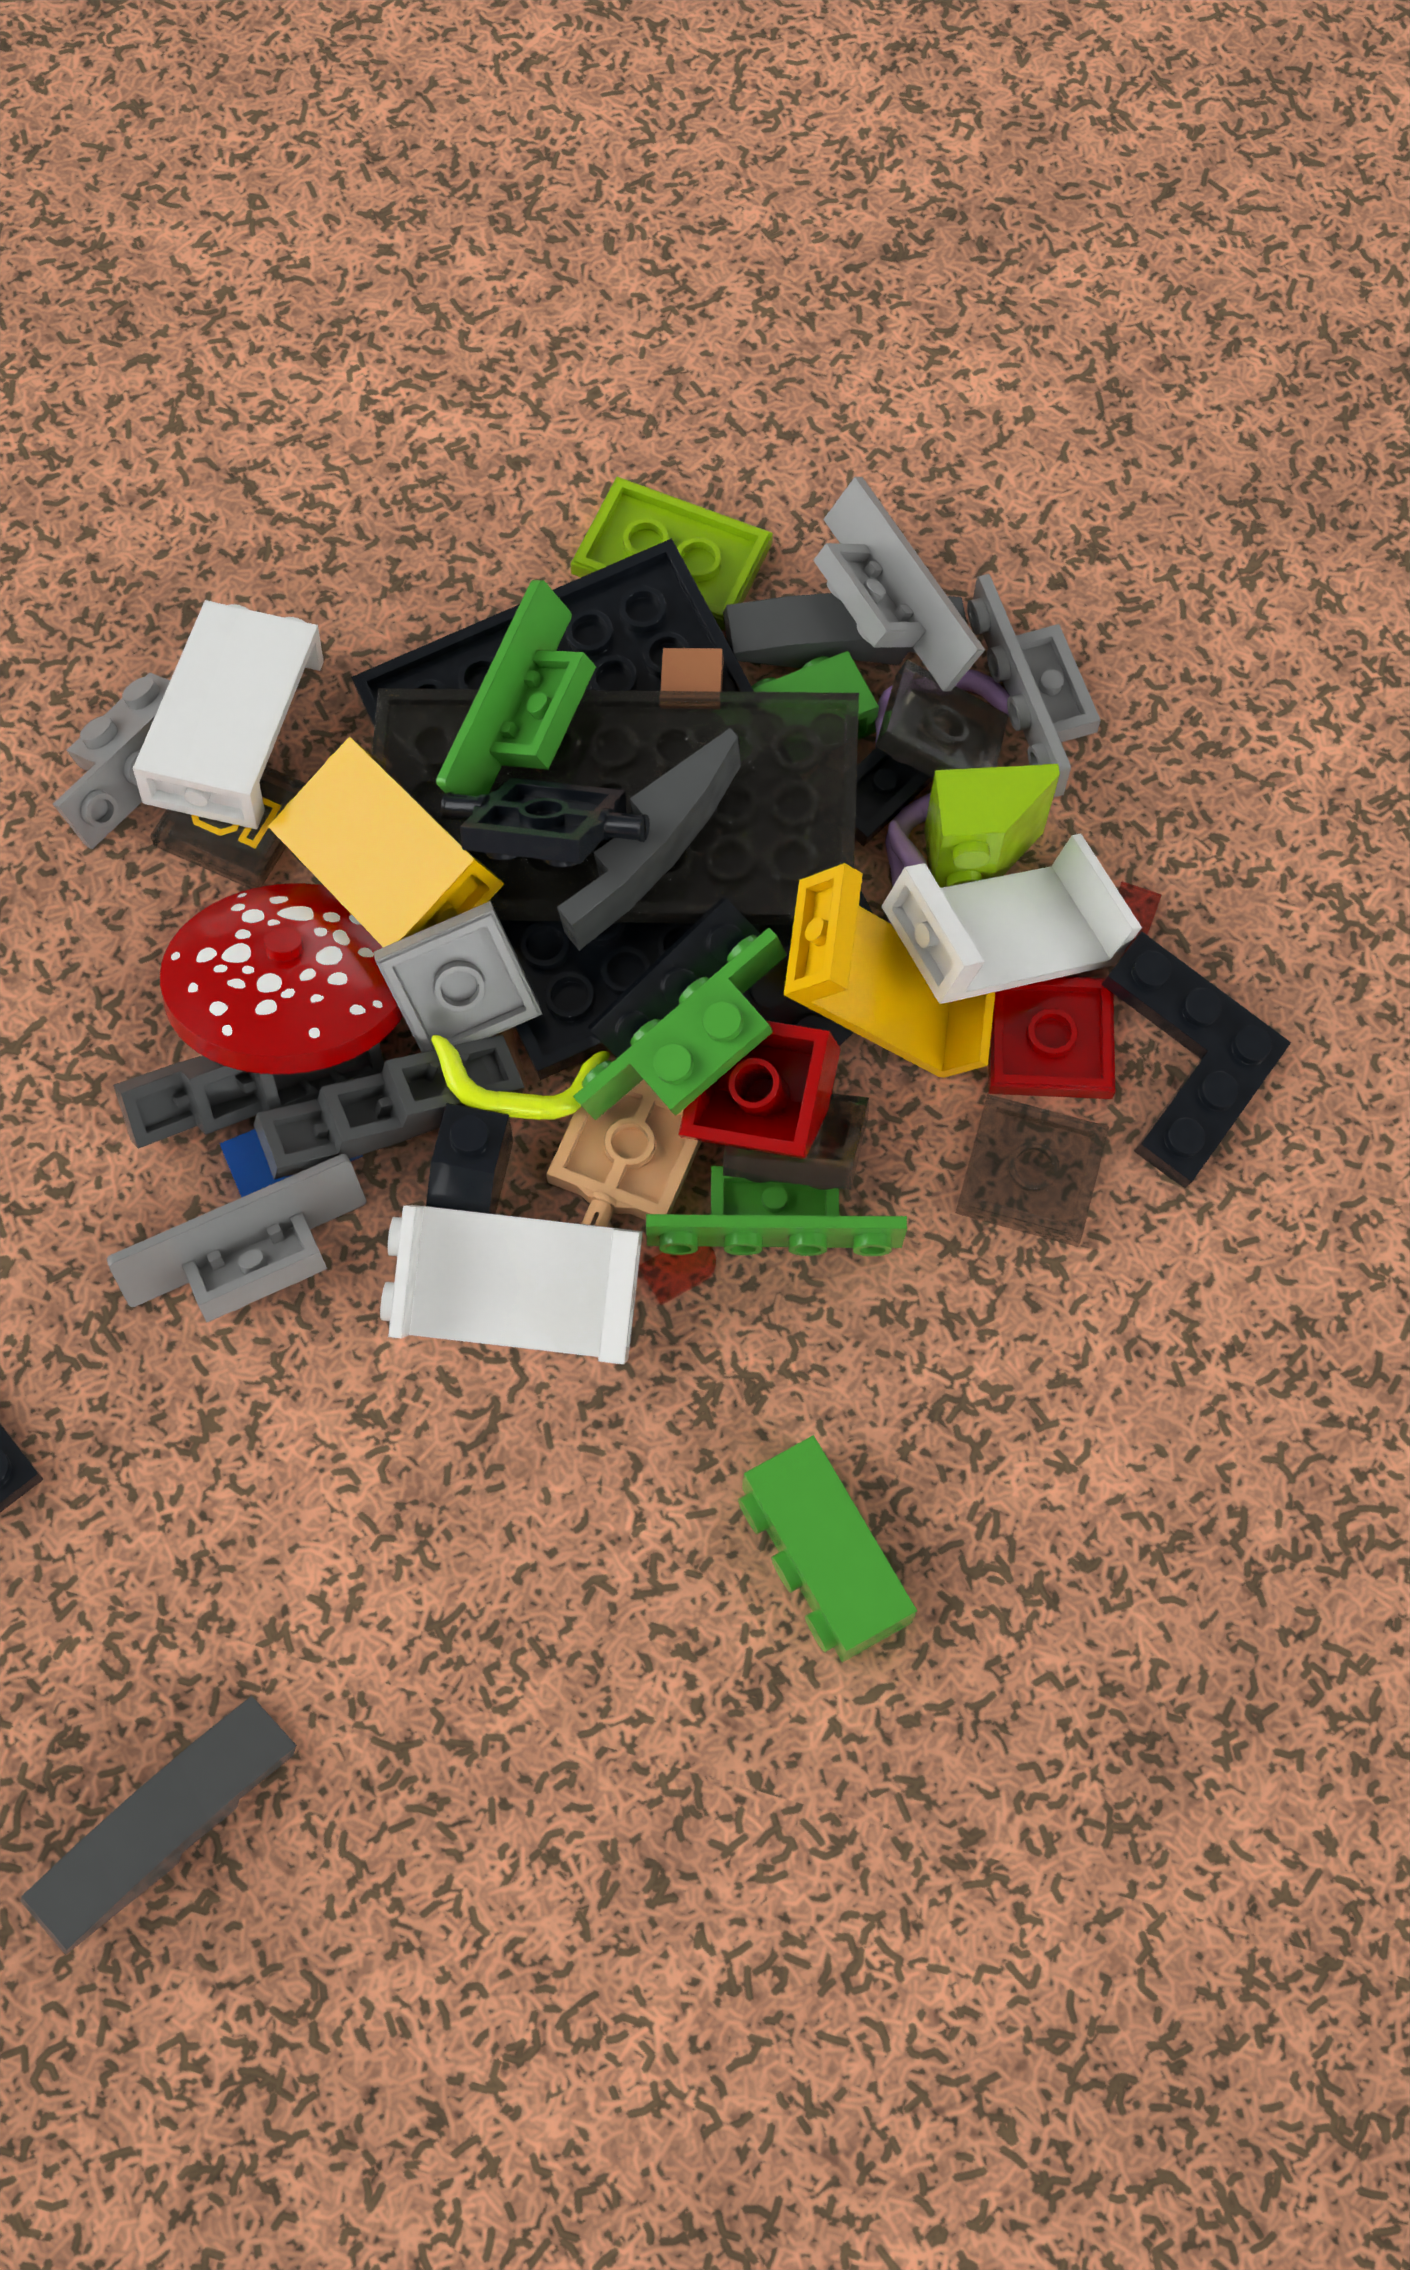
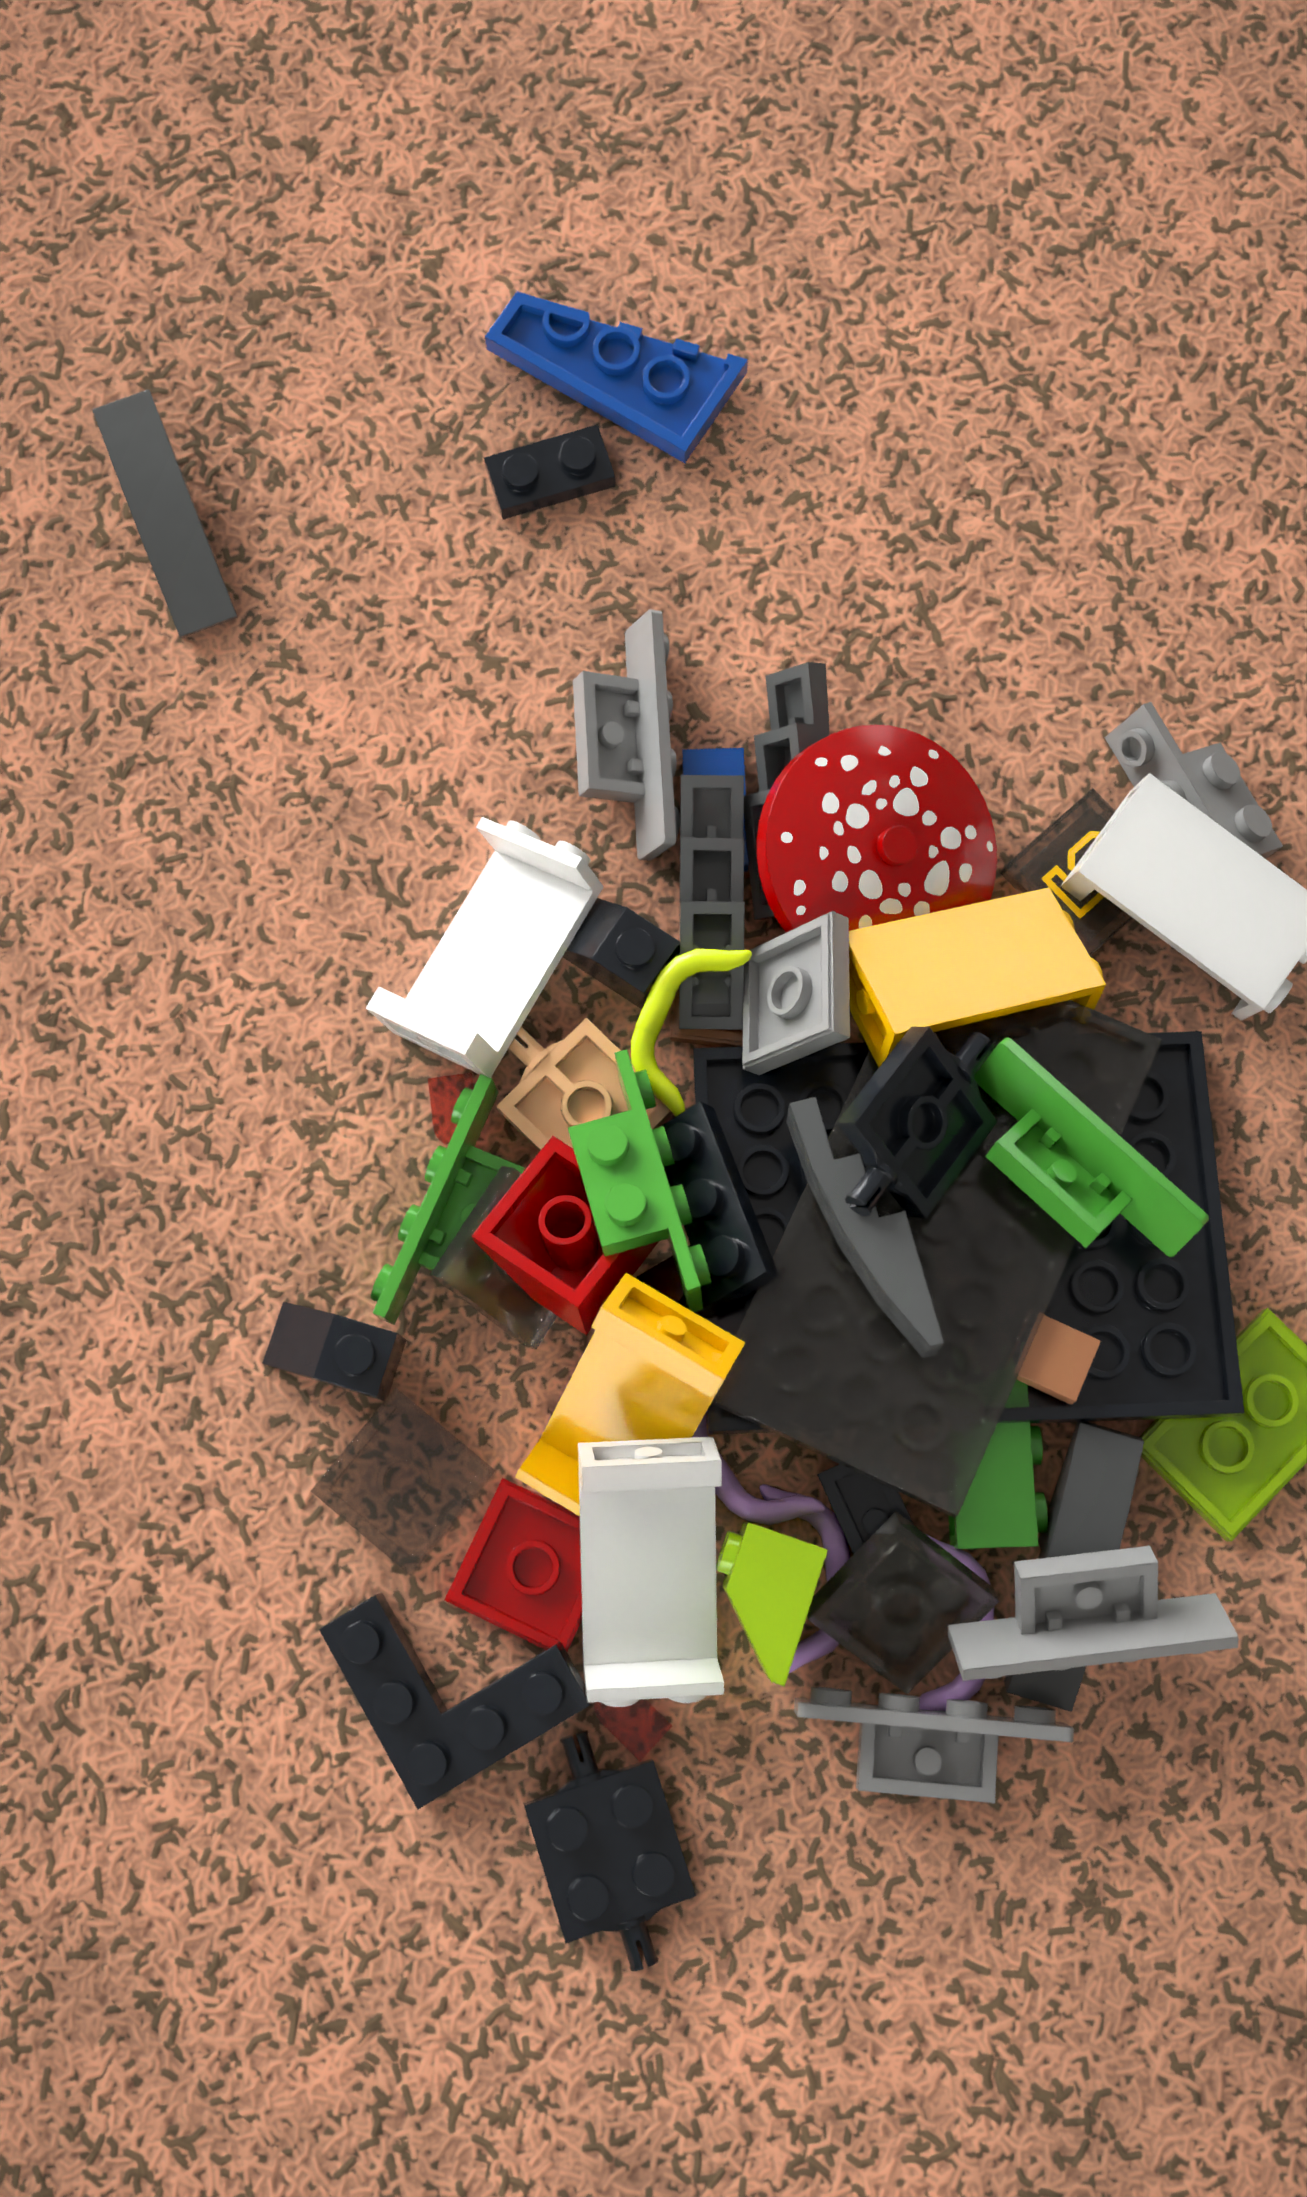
camera: 115 degrees right, 10 degrees up
(825, 1550) = (129, 1121): bright green brick -> none
(951, 1268) = (335, 1350): none -> black slope
(1241, 889) = (609, 1850): none -> black plate

